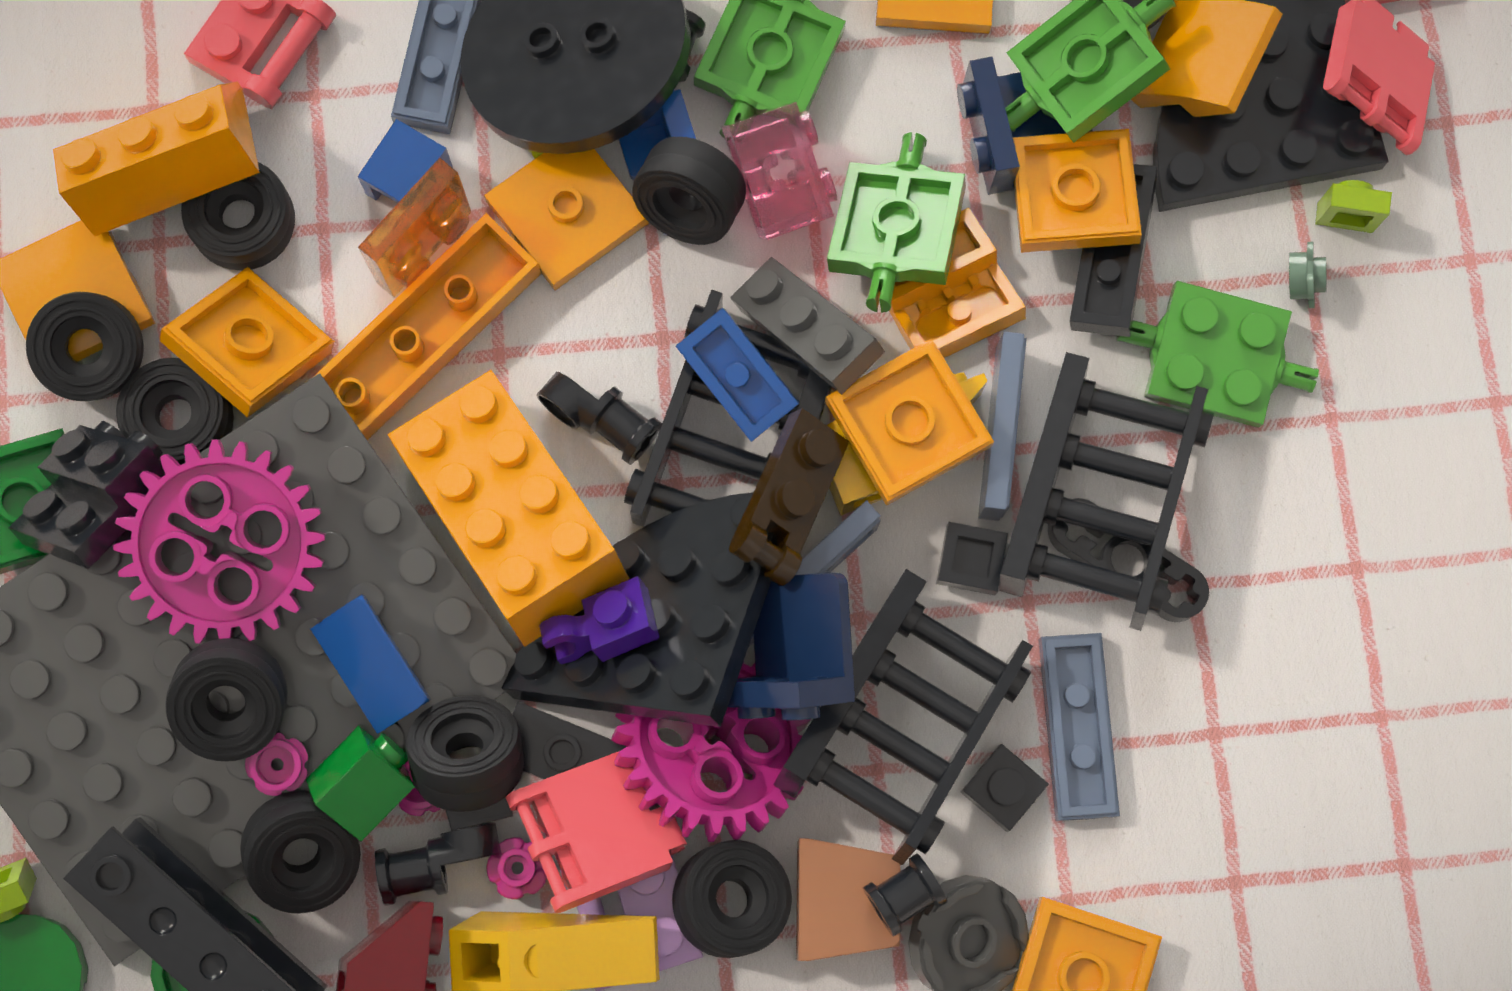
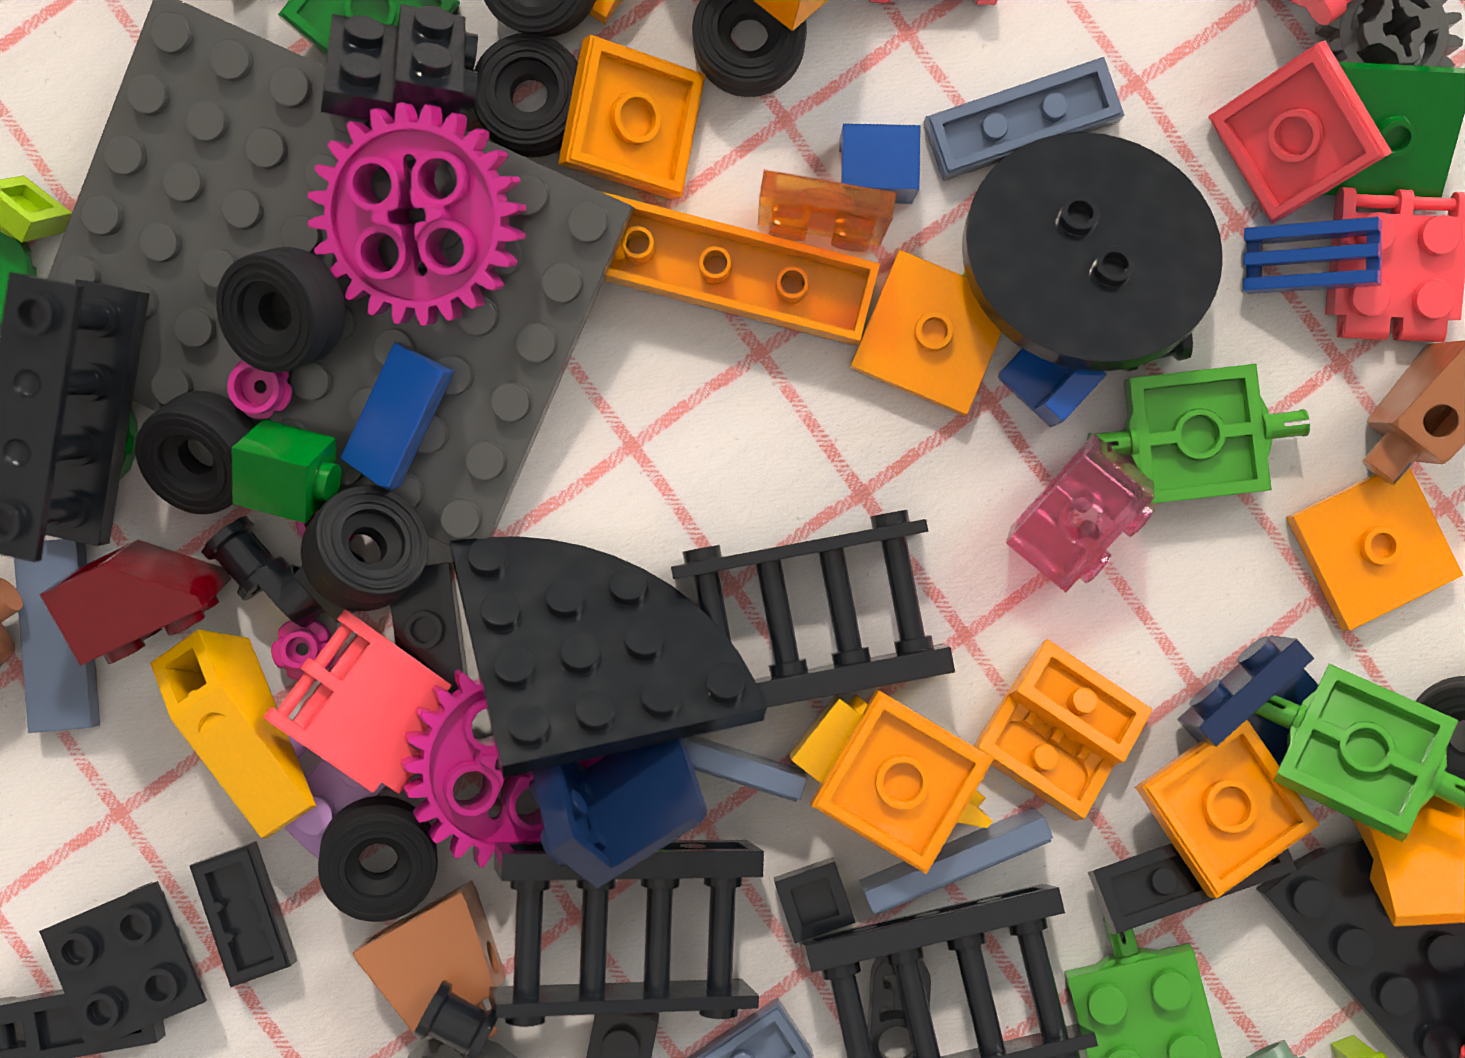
camera: 70 degrees right, 10 degrees up
(507, 506) = (607, 453): light orange brick -> none
(607, 416) = (753, 493): black connector -> none
(612, 624) = (547, 617): dark purple plate -> none
(689, 190) = (1011, 441): black tyre -> none
(737, 374) = (855, 593): blue plate -> none
(789, 496) = (759, 713): dark brown plate -> none
(807, 325) = (942, 630): dark grey plate -> none
(896, 222) = (1095, 653): plate -> none

